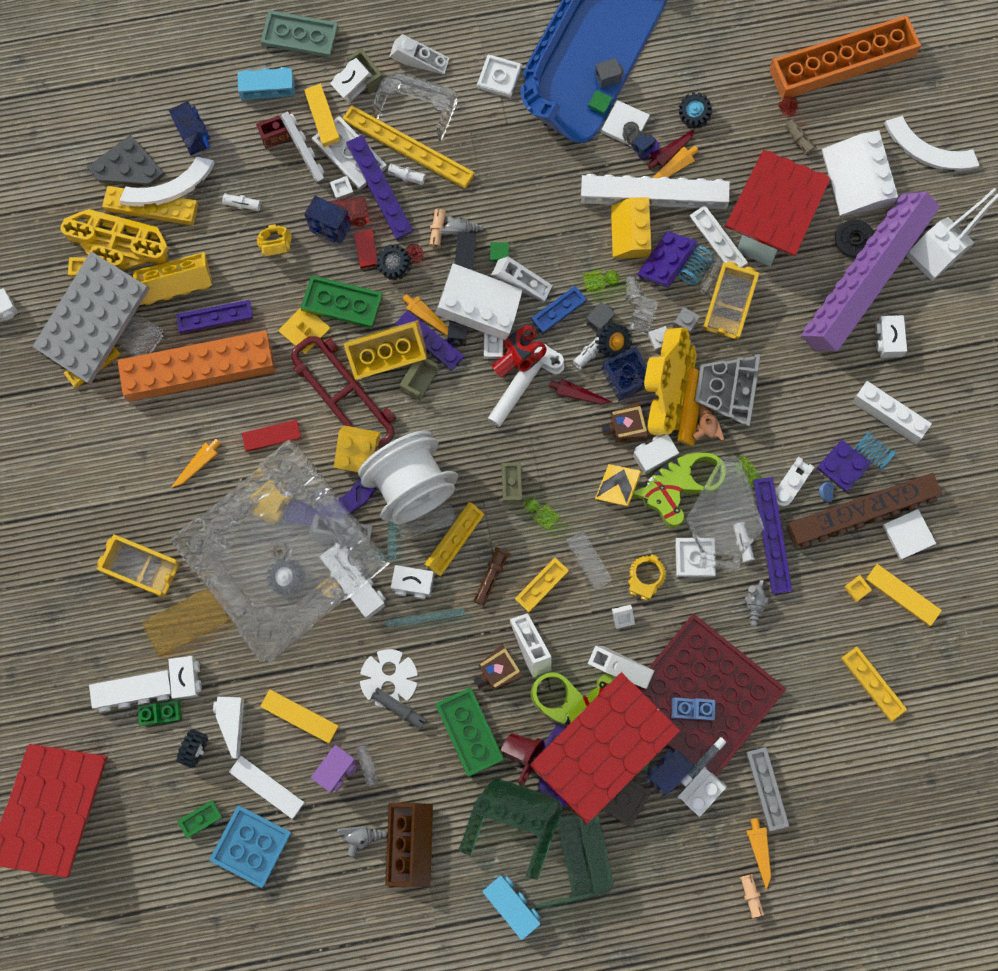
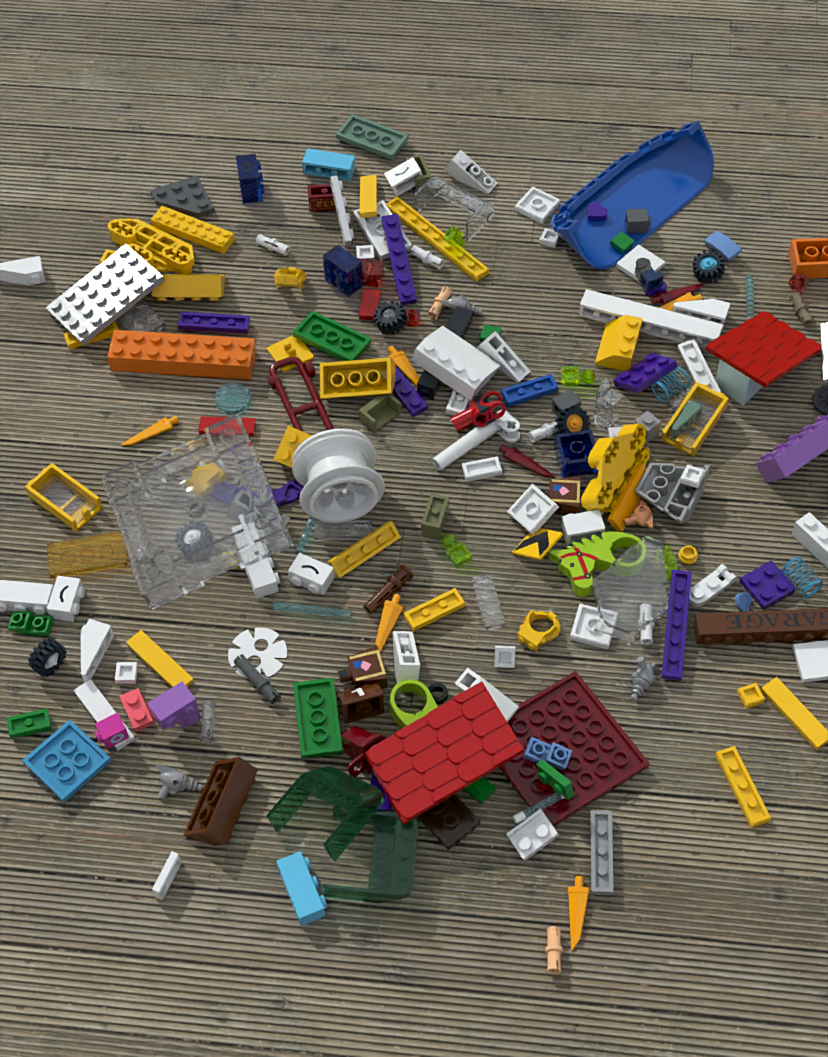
camera: 15 degrees right, 20 degrees down
(169, 191) = (218, 219): white tile -> none
(265, 402) = (232, 398): none -> clear light blue tile
(272, 739) = (126, 672): none -> white plate
(282, 807) = (111, 731): none -> dark pink brick
(295, 773) = (136, 710): none -> coral plate
(386, 932) = (167, 875): none -> white tile
(427, 145) = (453, 237): none -> clear neon green plate
(501, 605) = (388, 619): none -> light orange bar
(505, 704) = (361, 702): none -> reddish brown slope
(523, 116) = (549, 238): none -> white tile
(538, 413) = (481, 469): none -> white tile
(562, 70) = (596, 212): none -> dark purple tile
(574, 664) = (439, 686): none -> black piece
(603, 449) = (532, 509): none -> white tile
(670, 772) = (503, 802): clear blue brick -> none
(703, 79) = (723, 245): none -> medium blue slope
(709, 167) = (707, 309): none -> white slope
(716, 742) = (556, 780): none -> green plate
(725, 297) = (690, 413): none -> sand green slope
(745, 138) = (749, 296): none -> clear light blue bar
(747, 372) = (692, 476): none -> white tile
(762, 455) = (688, 555): none -> yellow plate

